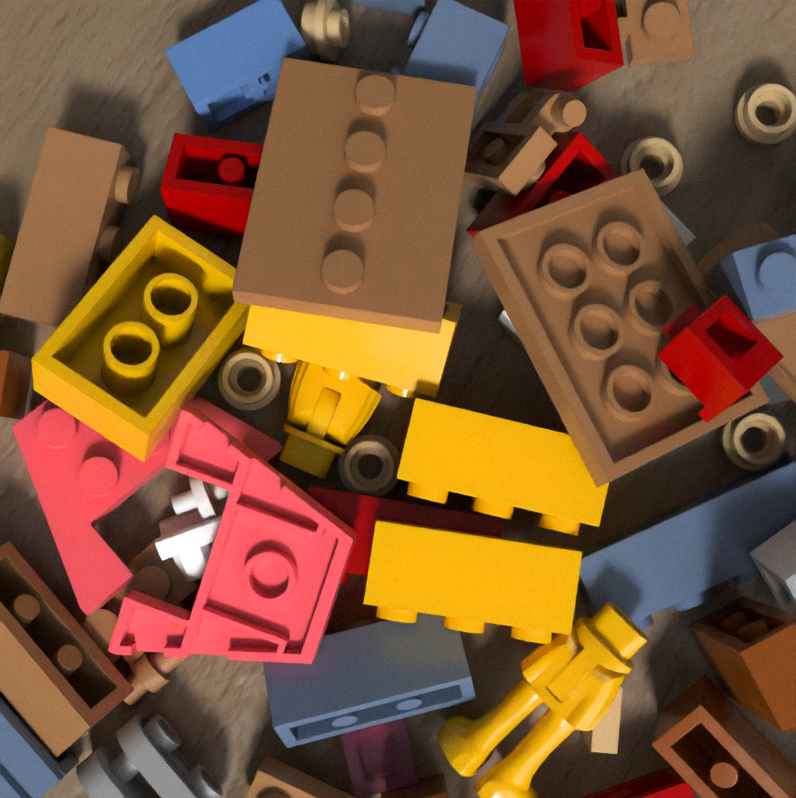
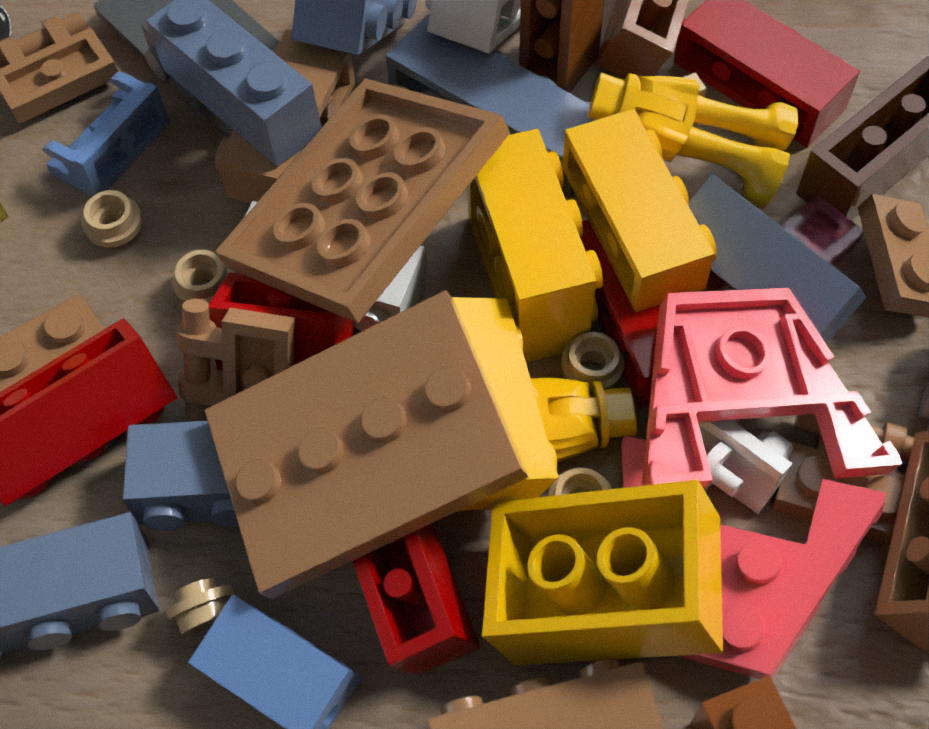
camera: 120 degrees left, 25 degrees down
(717, 354) = (354, 99): red brick -> none

